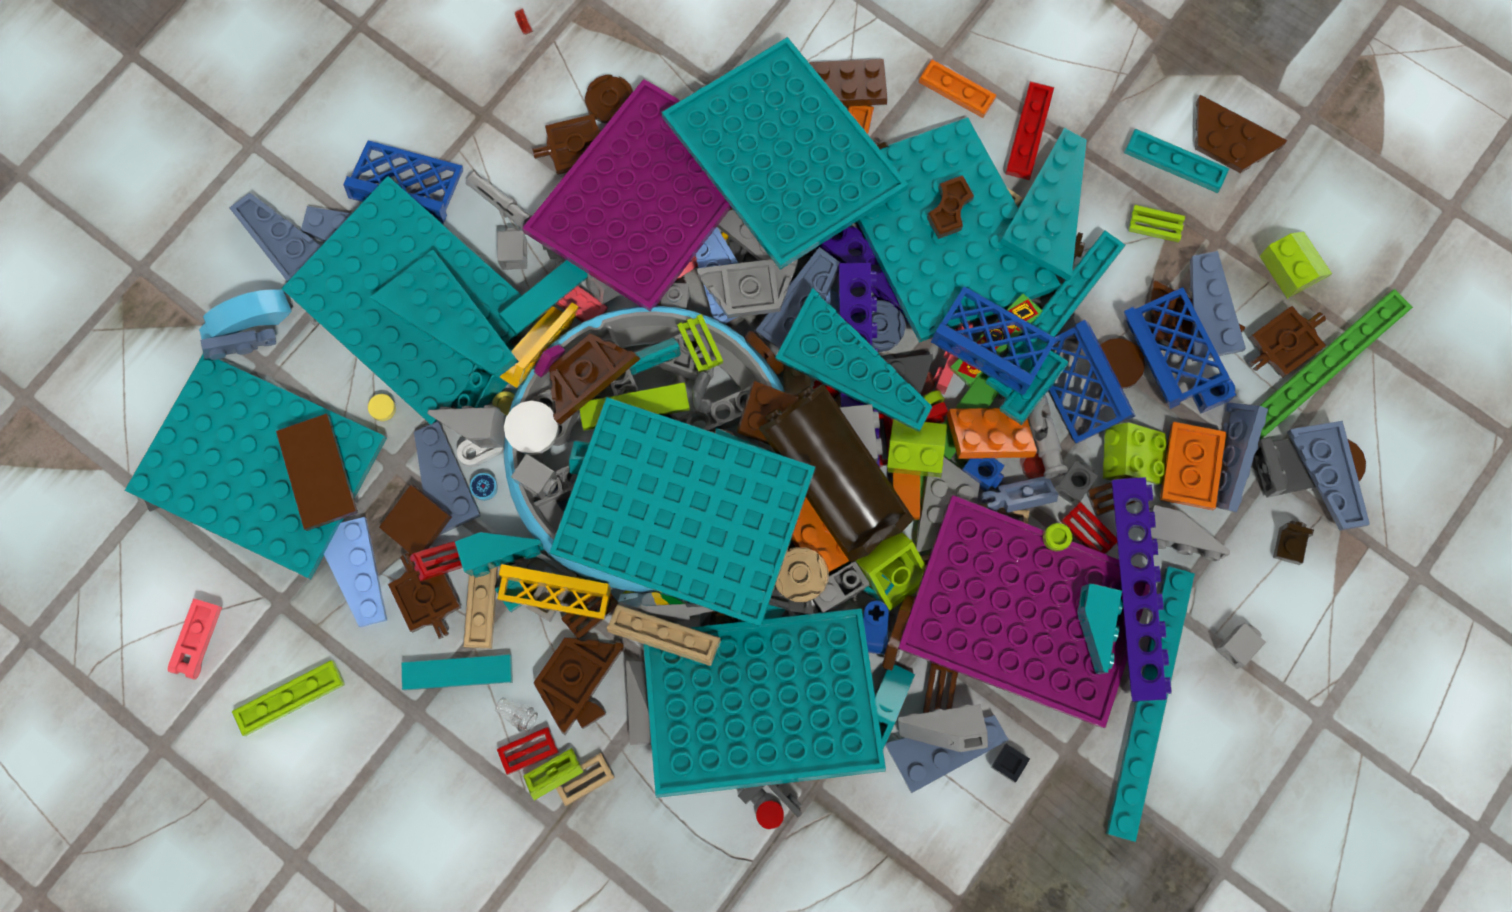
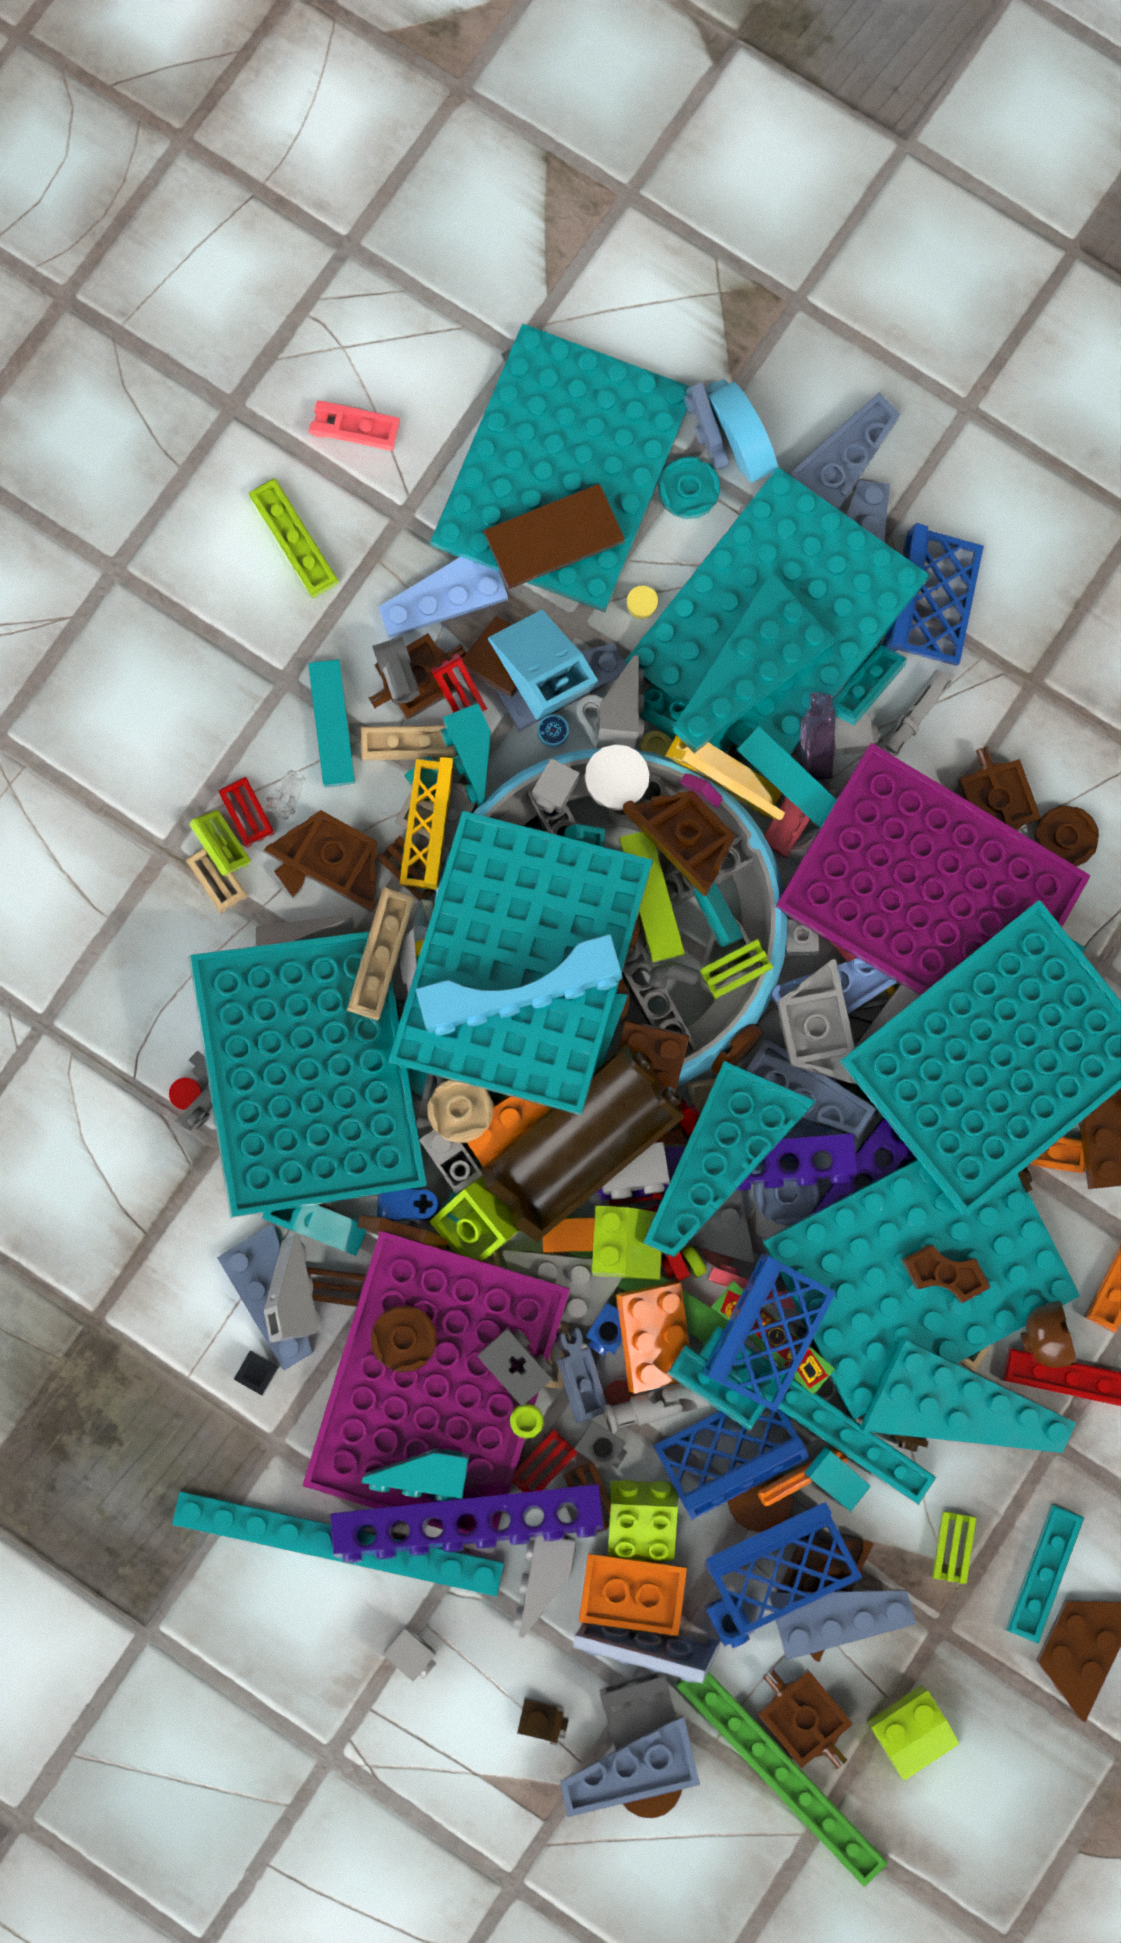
camera: 80 degrees right, 5 degrees up
(291, 371) = (680, 489): none -> teal tile
(410, 611) = (395, 664): none -> dark grey piece
(426, 485) = (543, 663): none -> medium azure slope
(473, 234) = (867, 684): none -> teal tile
(510, 272) = (818, 737): none -> clear purple hinge
(716, 566) = (587, 966): none -> medium azure arch
(988, 633) = (404, 1338): none -> reddish brown tile
(999, 138) = (1049, 1336): none -> reddish brown cylinder
(1028, 534) = (520, 1384): none -> dark grey brick
(1103, 330) = (790, 1483): none -> orange axle
(1105, 302) = (837, 1479): none -> teal tile

